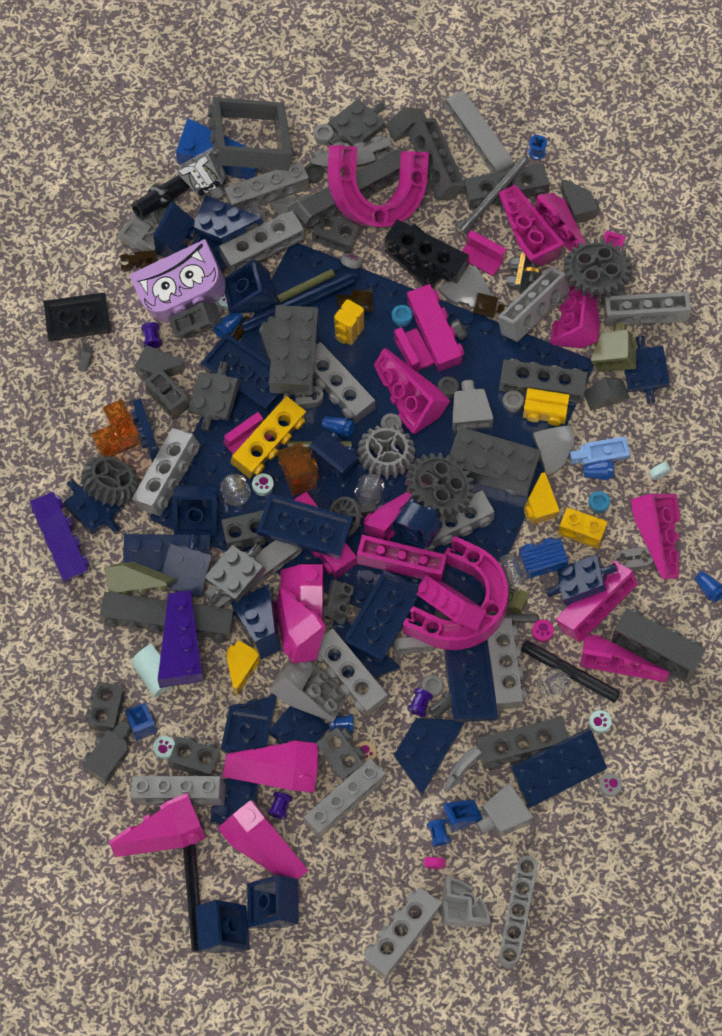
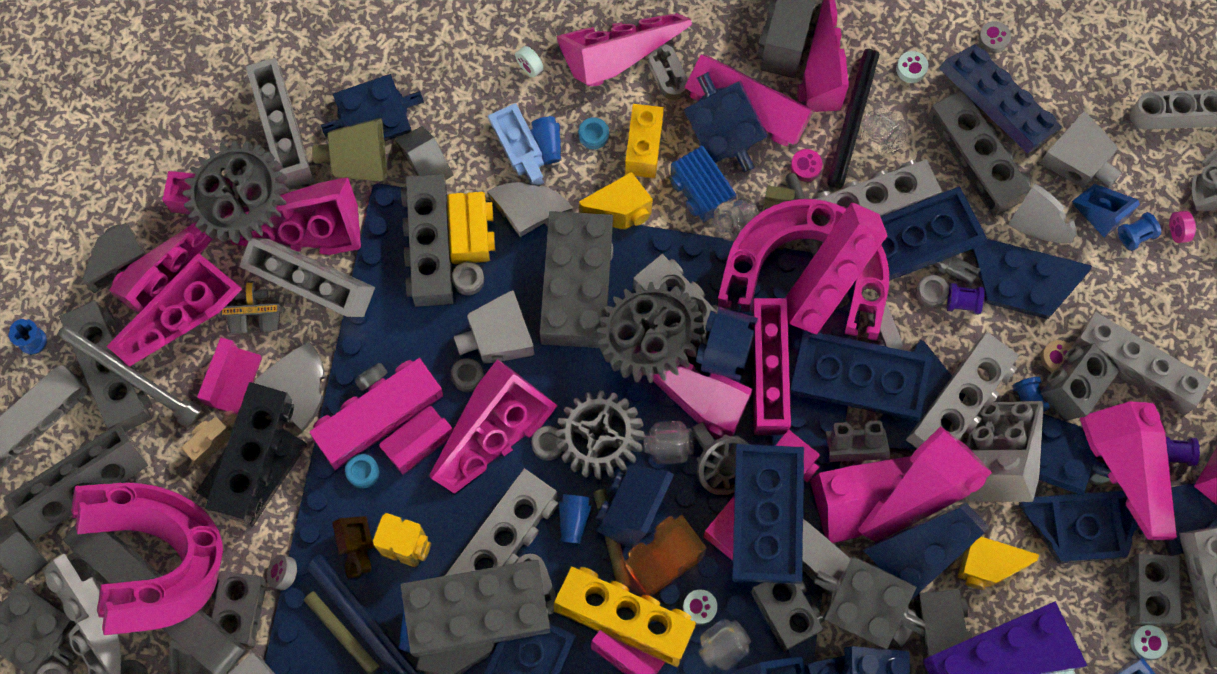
camera: 105 degrees left, 5 degrees up
(444, 233) = (209, 437): none -> tan piece
(487, 306) = (318, 348): dark brown plate -> none

